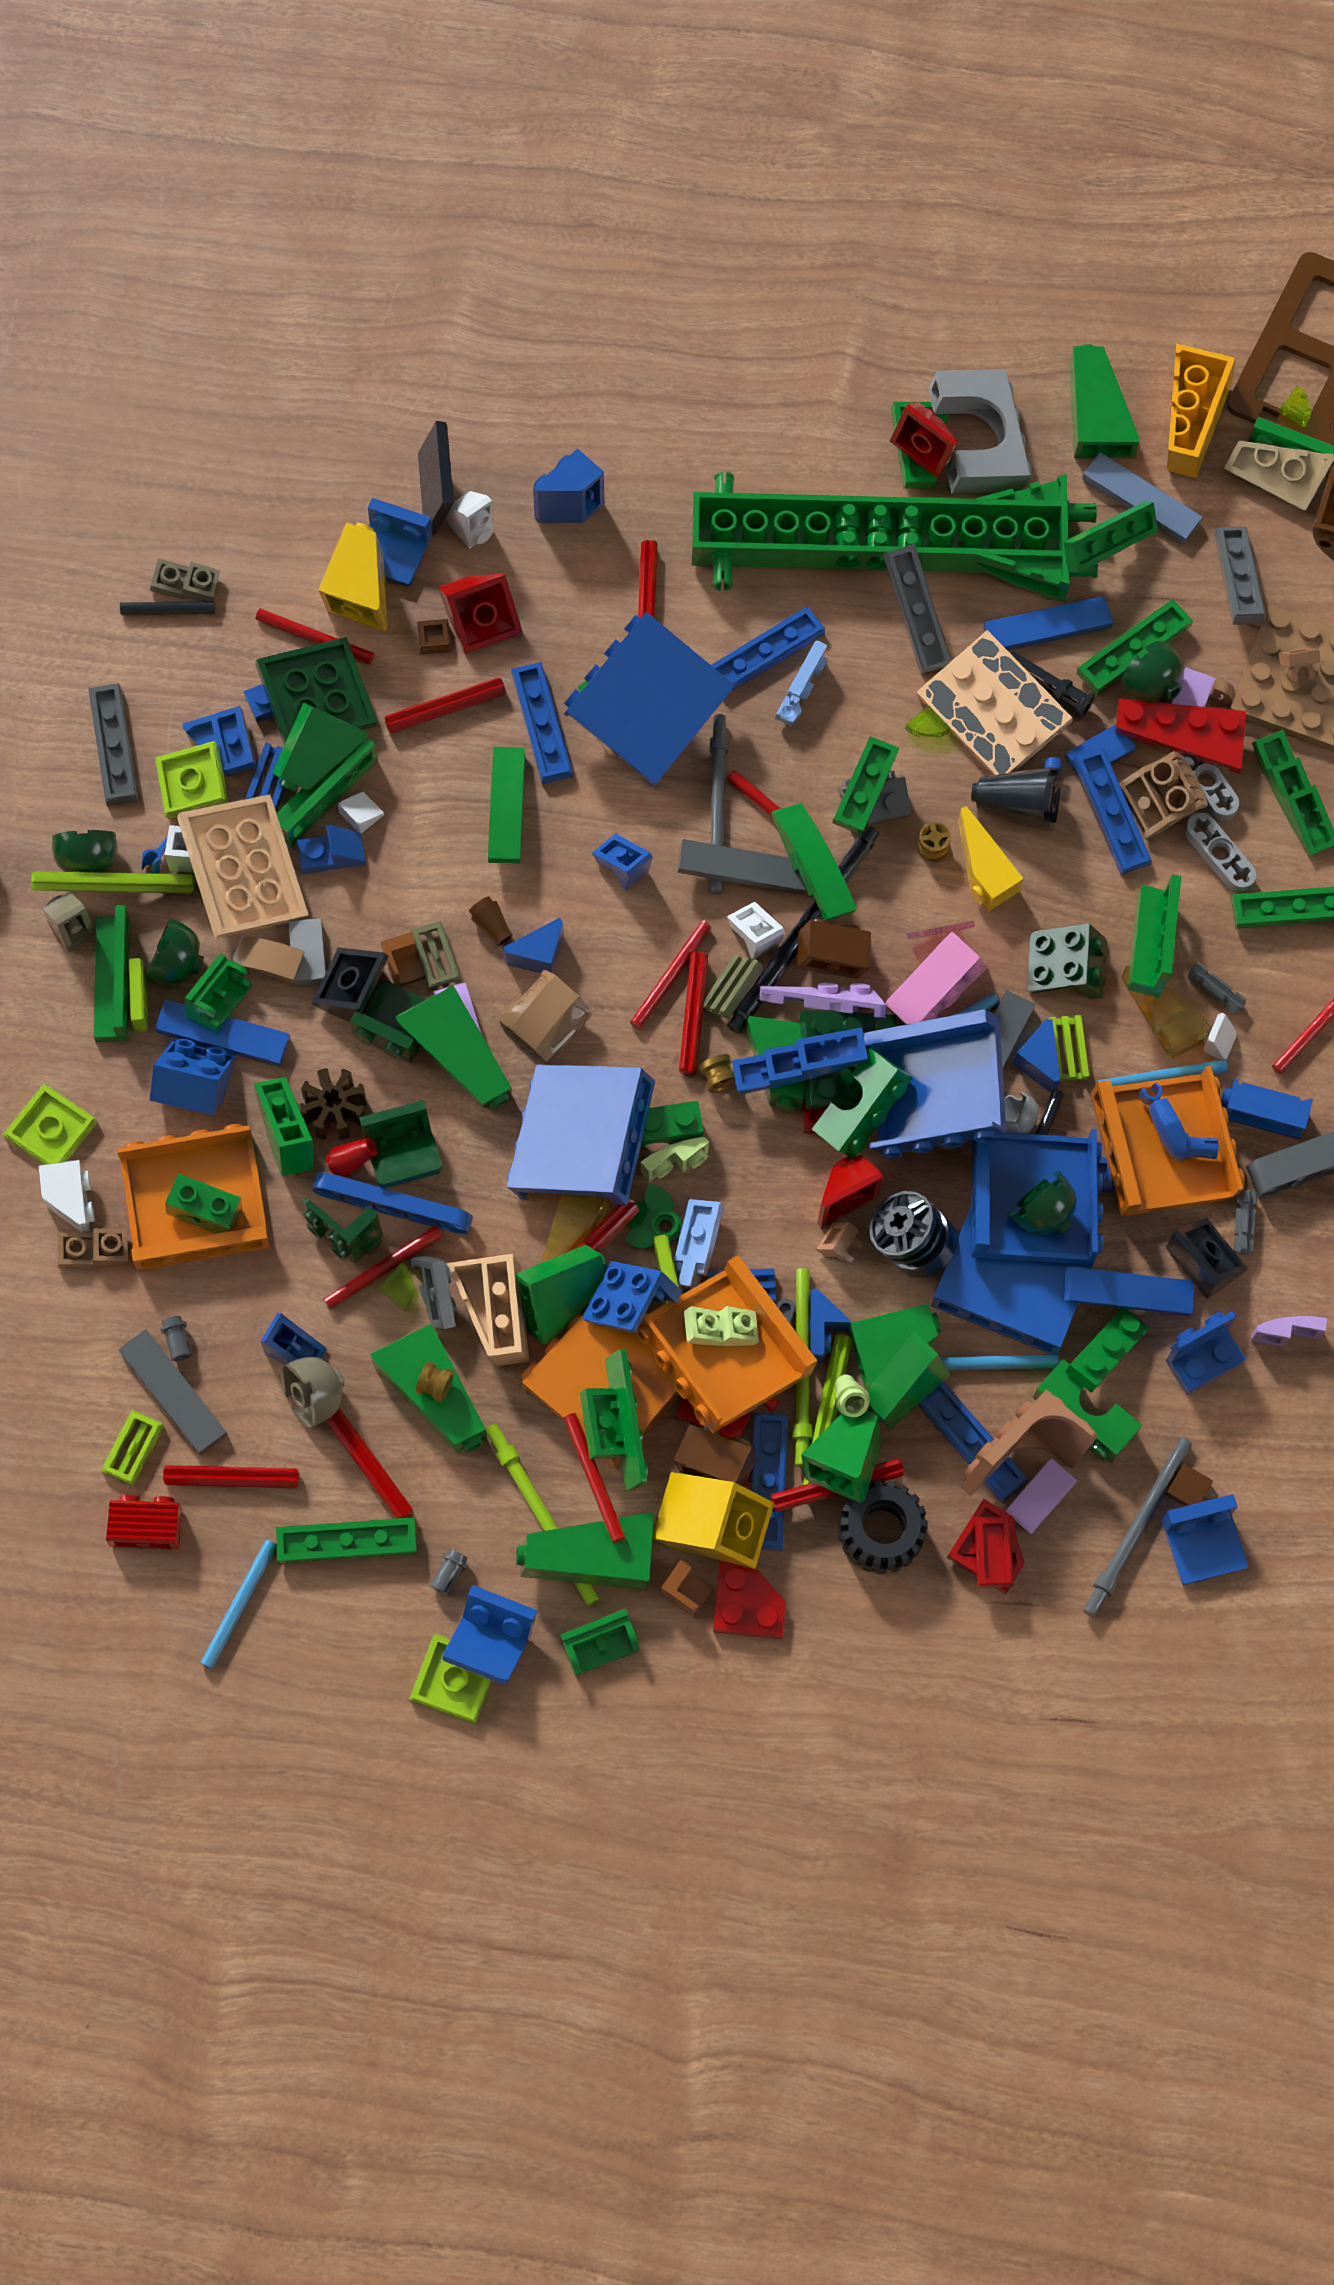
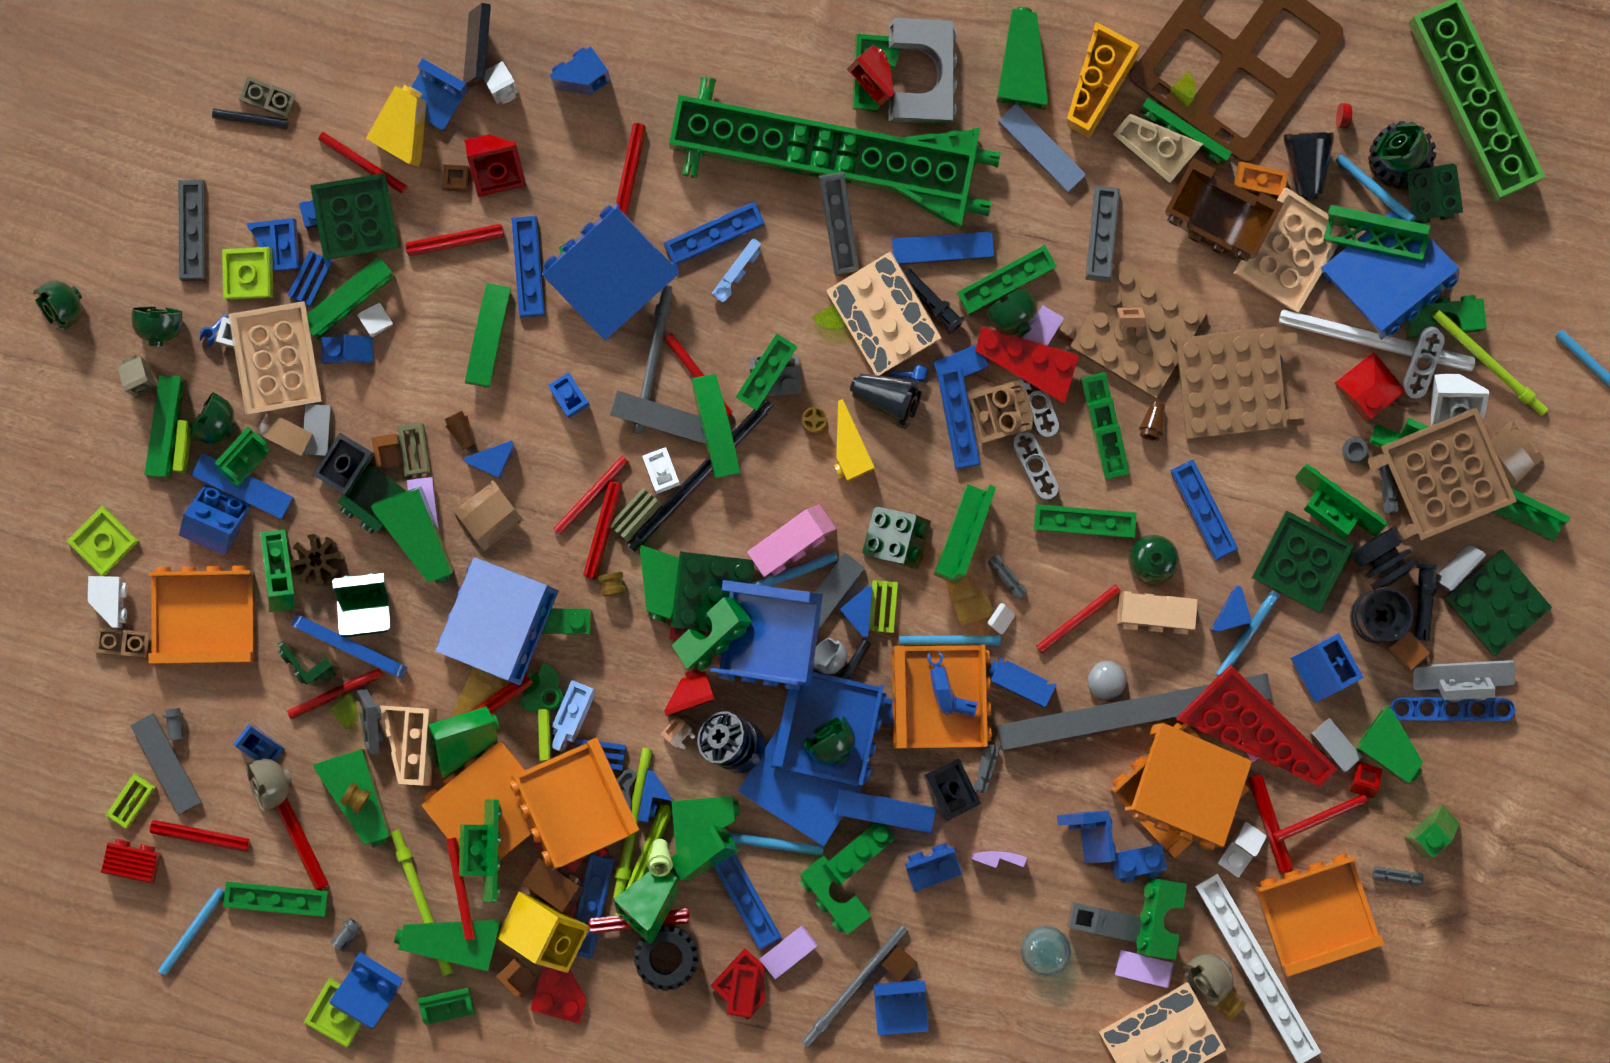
camera: 10 degrees right, 15 degrees up
(112, 882) = (173, 352): lime axle -> none
(203, 1205) = (207, 627): green brick -> none
(315, 748) = (346, 267): green slope -> none
(348, 1158) = (322, 605): red cone -> none
(626, 1295) = (506, 757): blue bracket -> none
(683, 1154) = (575, 645): yellowish green slope -> none
(721, 1328) = (574, 789): yellowish green slope -> none
(800, 1061) = (670, 594): blue slope -> none
(828, 997) = (707, 539): lavender wing -> none
(834, 948) = (717, 499): reddish brown brick -> none
(939, 930) = (802, 499): clear pink piece -> none
(1037, 1424) = (796, 900): nougat bracket -> none
(1110, 537) = (1004, 187): green plate -> none

